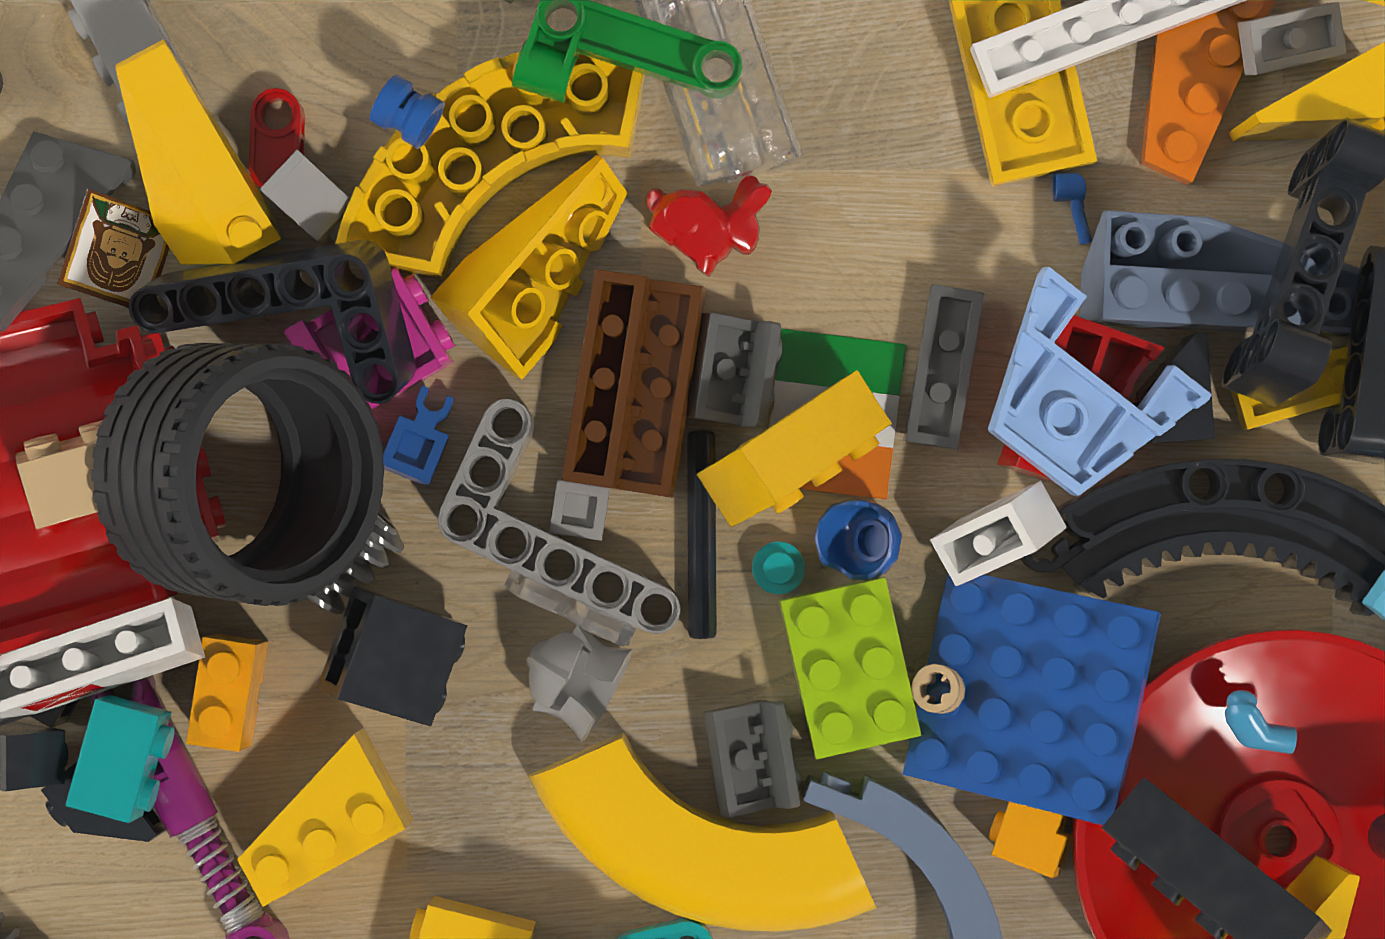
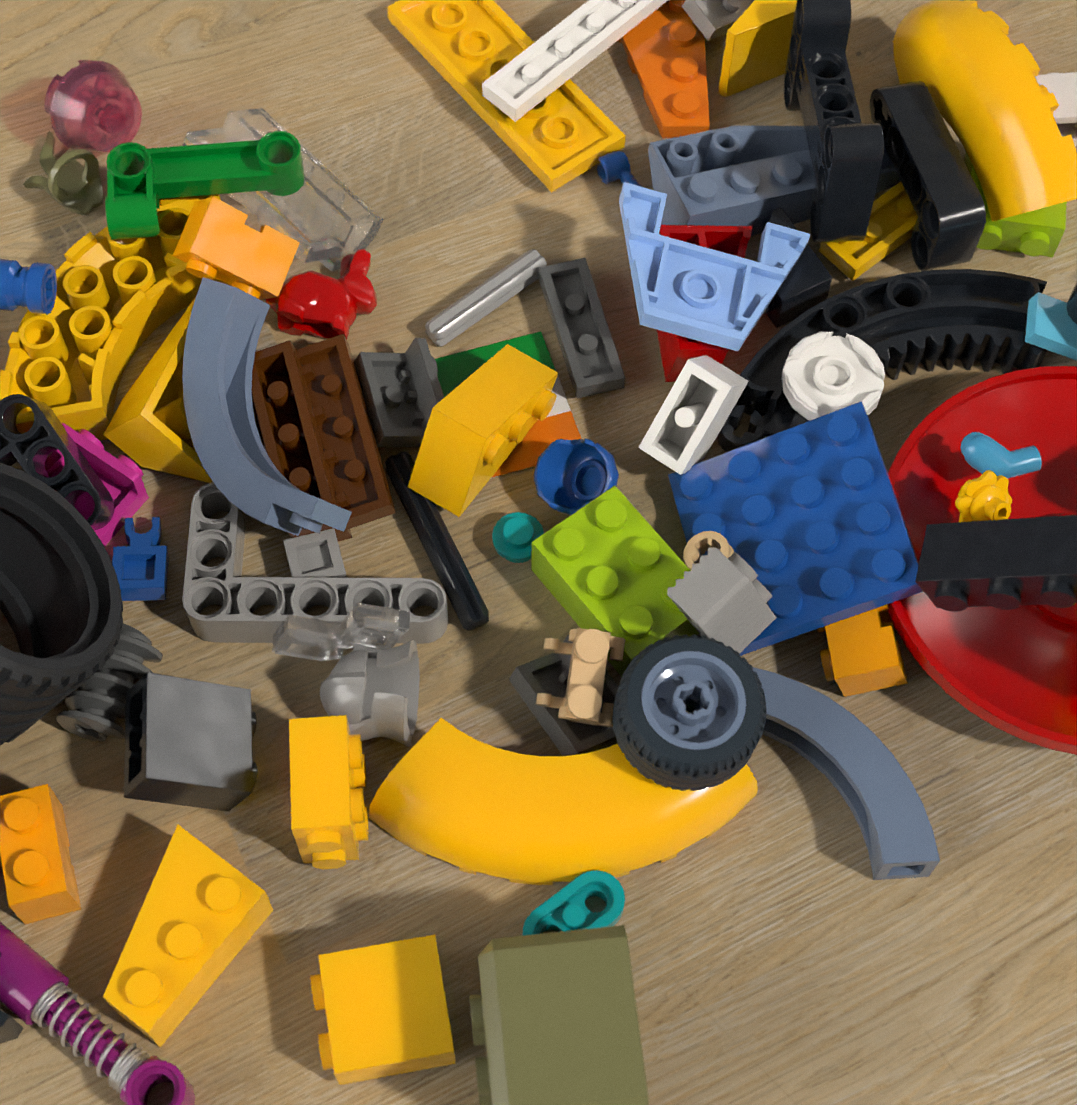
camera: 25 degrees left, 25 degrees down
(490, 761) = (325, 790): none -> yellow brick
(545, 347) = (221, 414): none -> sand blue arch
(637, 166) = (224, 248): none -> light orange brick
(764, 763) = (585, 676): none -> tan piece
(827, 884) = (680, 746): none -> wheel
(868, 287) = (485, 298): none -> light grey axle
(917, 762) = (724, 599): none -> light grey brick
(1152, 557) = (831, 374): none -> white tile
(1214, 769) = (984, 498): none -> yellow plant

